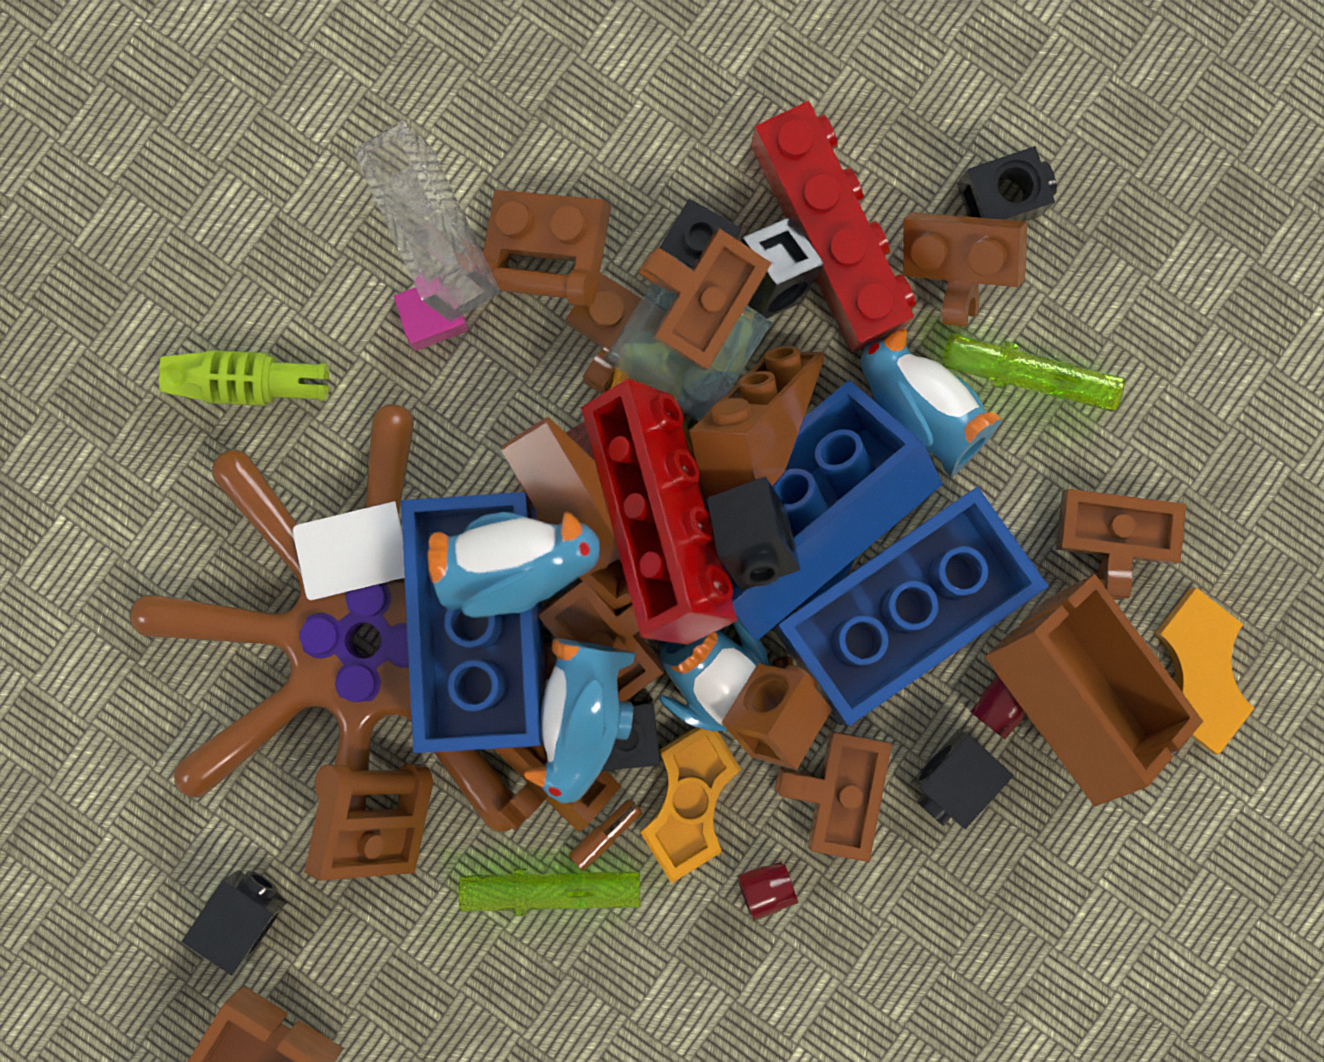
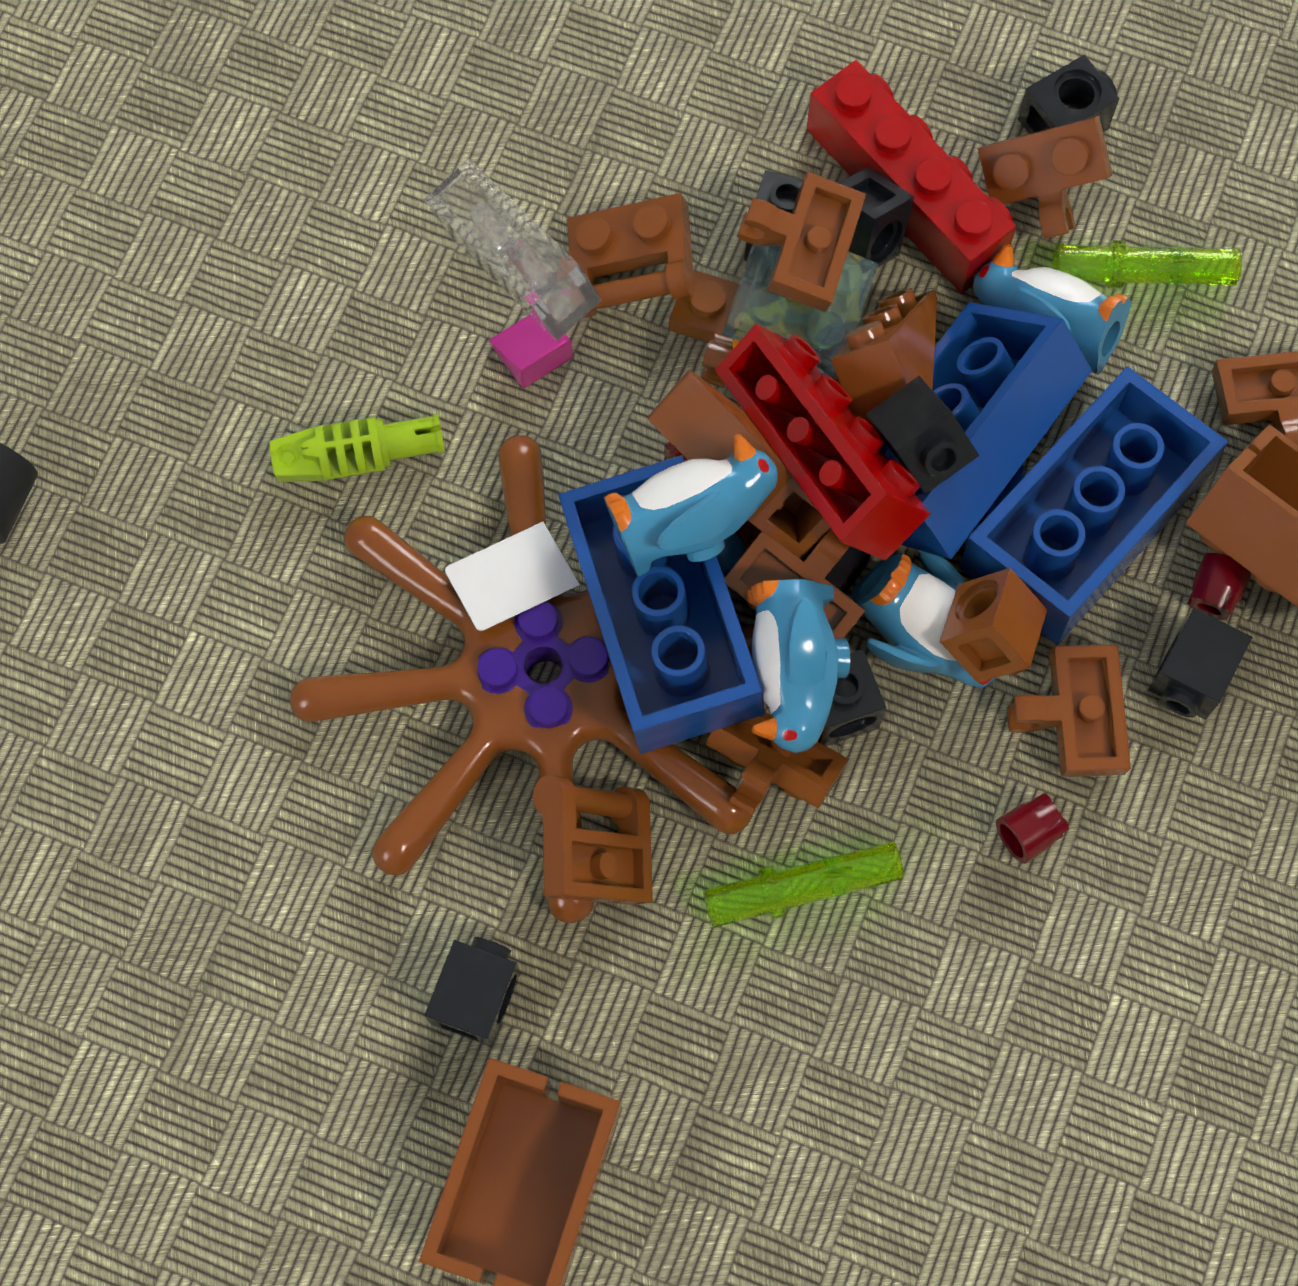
camera: 10 degrees left, 15 degrees down
(599, 840) = (844, 816): dark orange pin -> none
(684, 828) = (926, 788): light orange tile -> none

